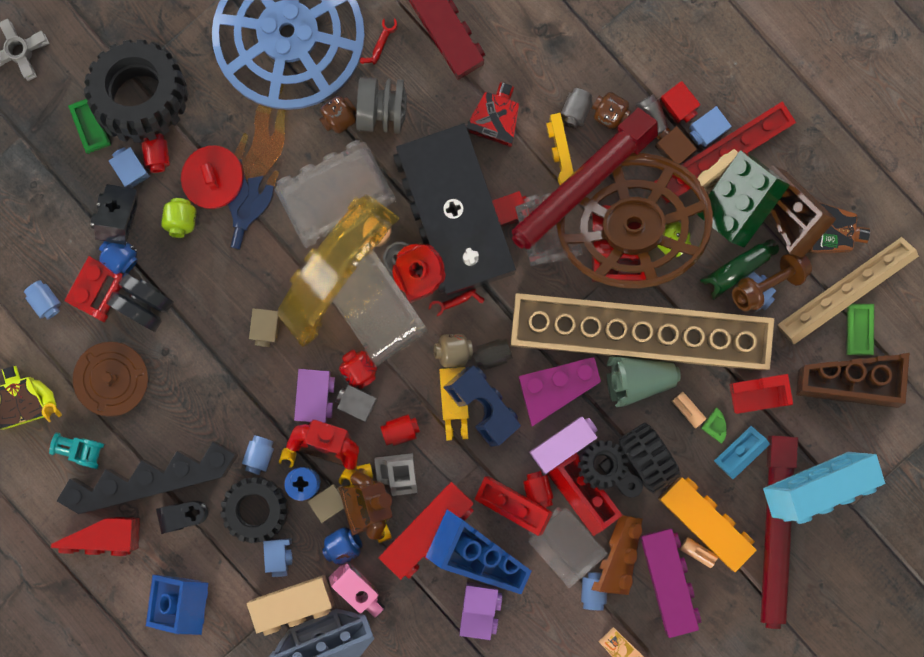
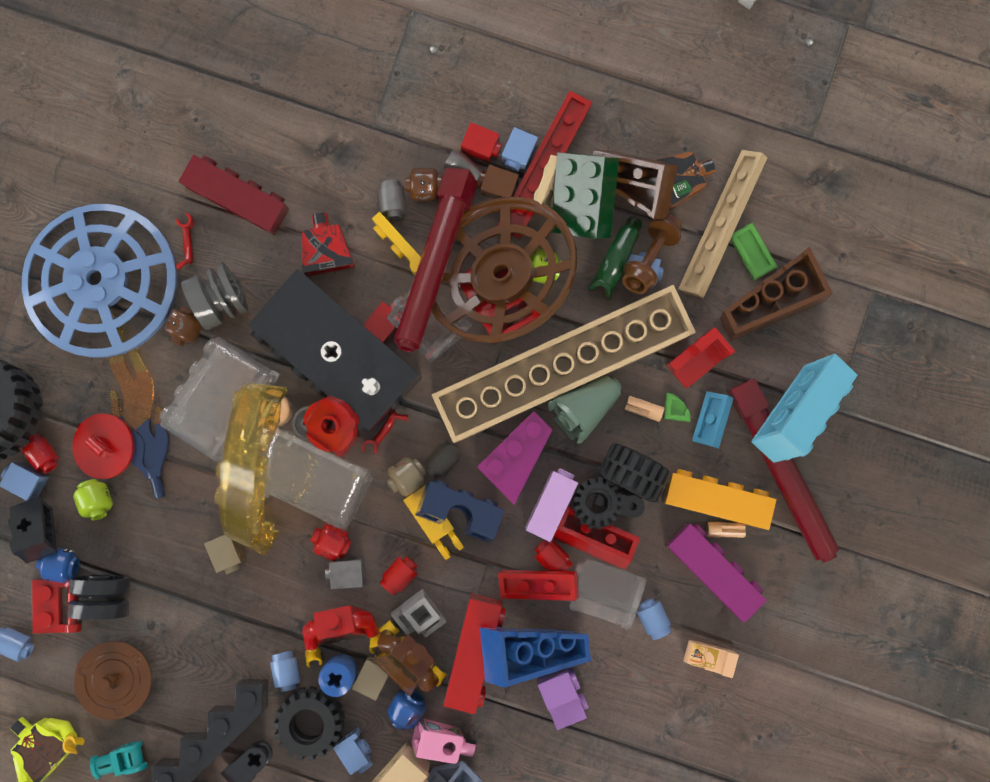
camera: 25 degrees left, 0 degrees up
(313, 395) = (304, 589): medium lavender brick -> none
(620, 563) = (663, 584): dark orange wing -> none

